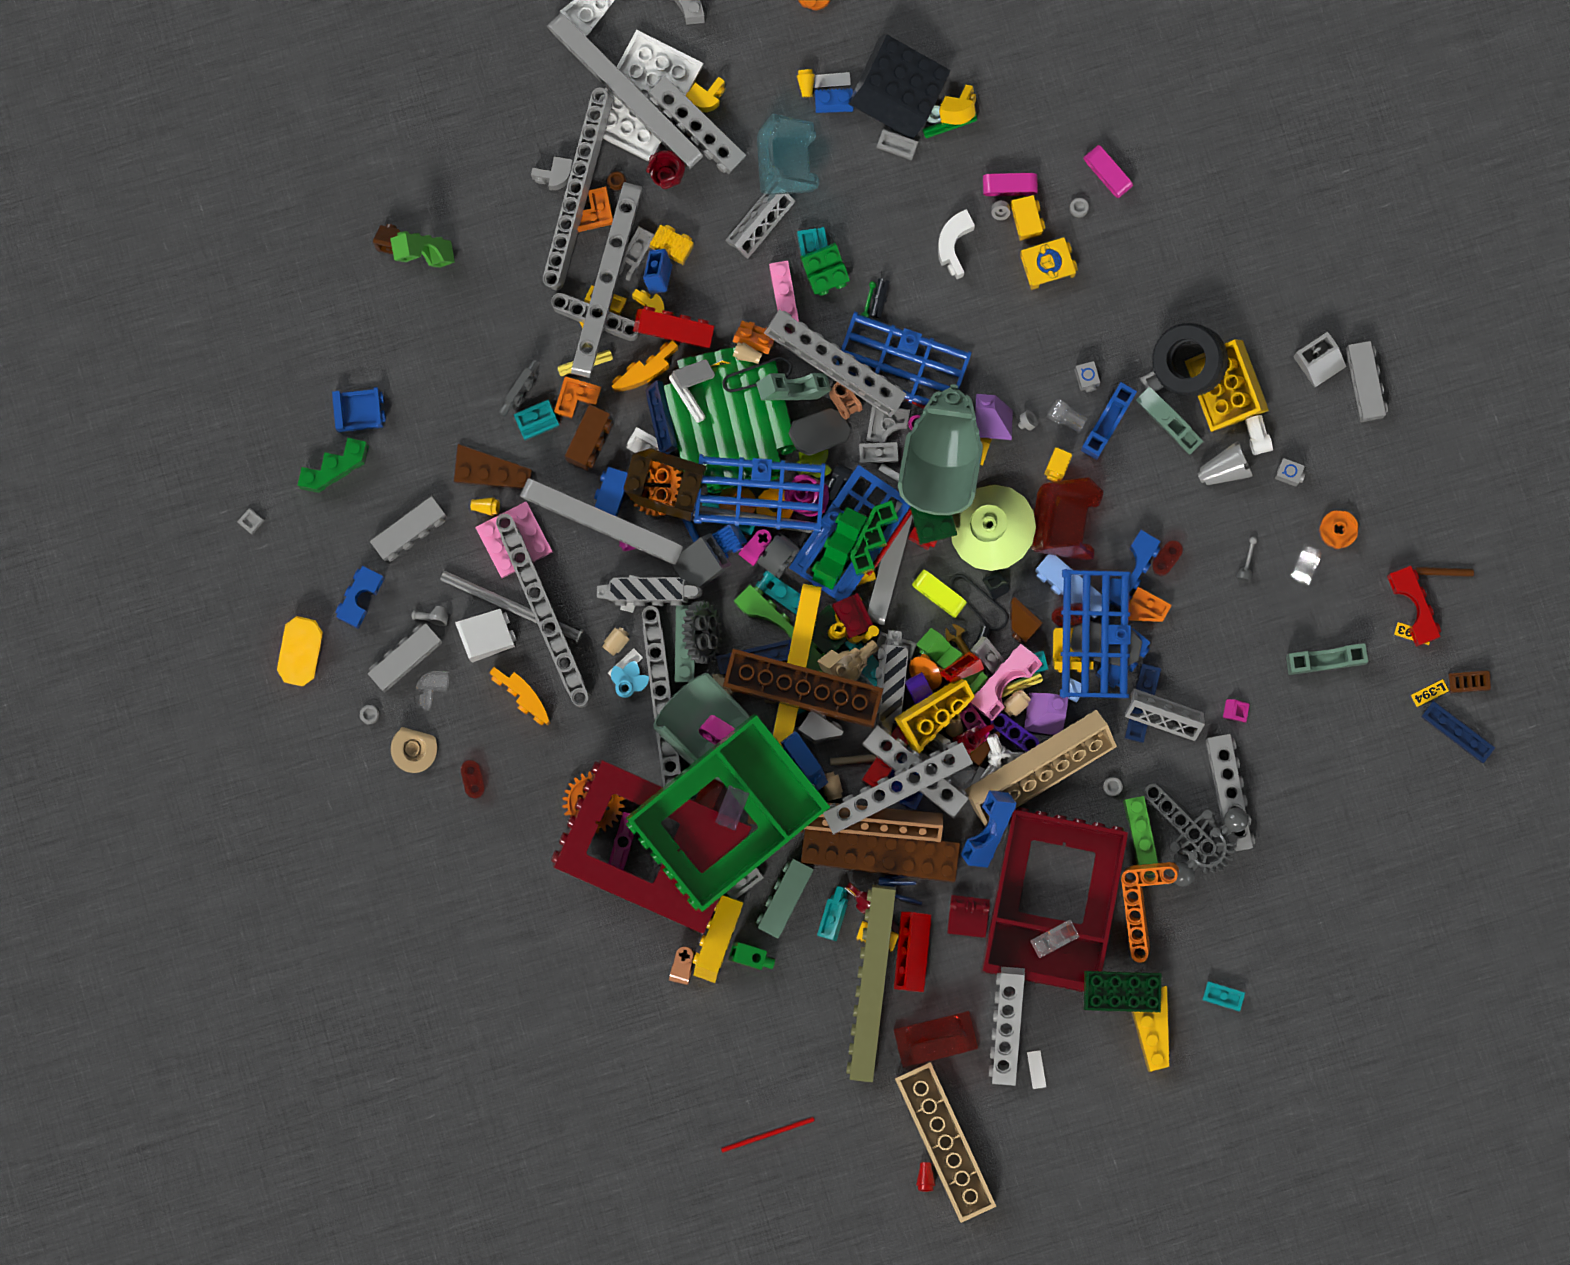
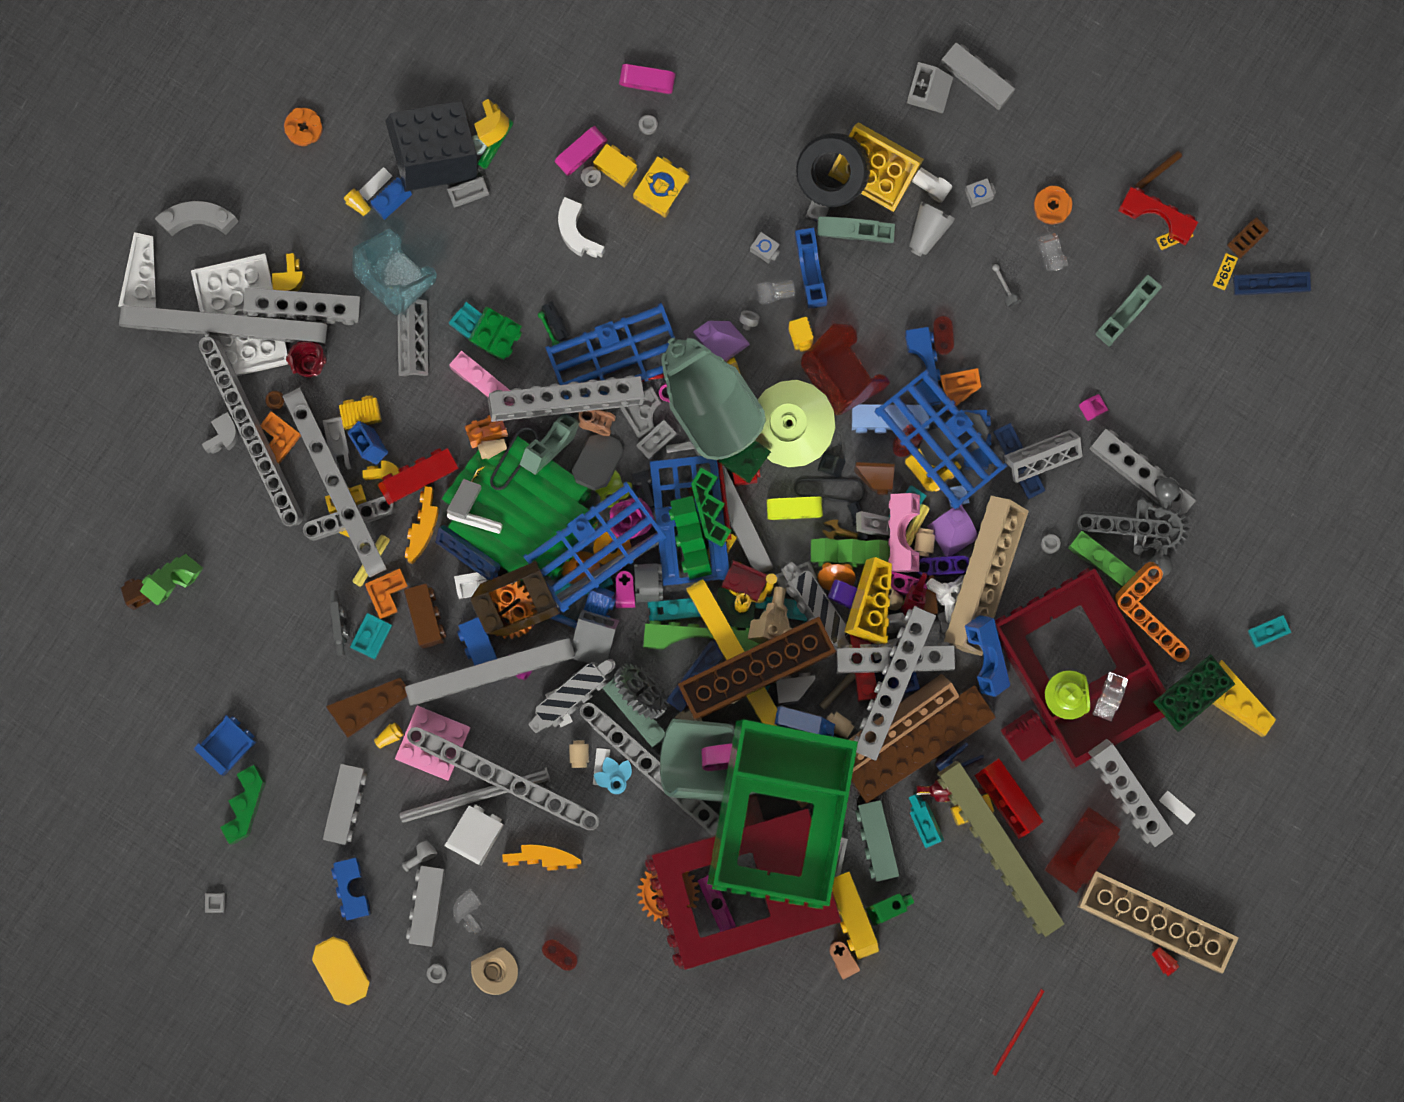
camera: 40 degrees left, 0 degrees up
(732, 807) = (785, 806): clear purple hinge -> none
(963, 667) = (864, 545): red slope -> none
(1023, 910) = (1068, 695): none -> lime hat

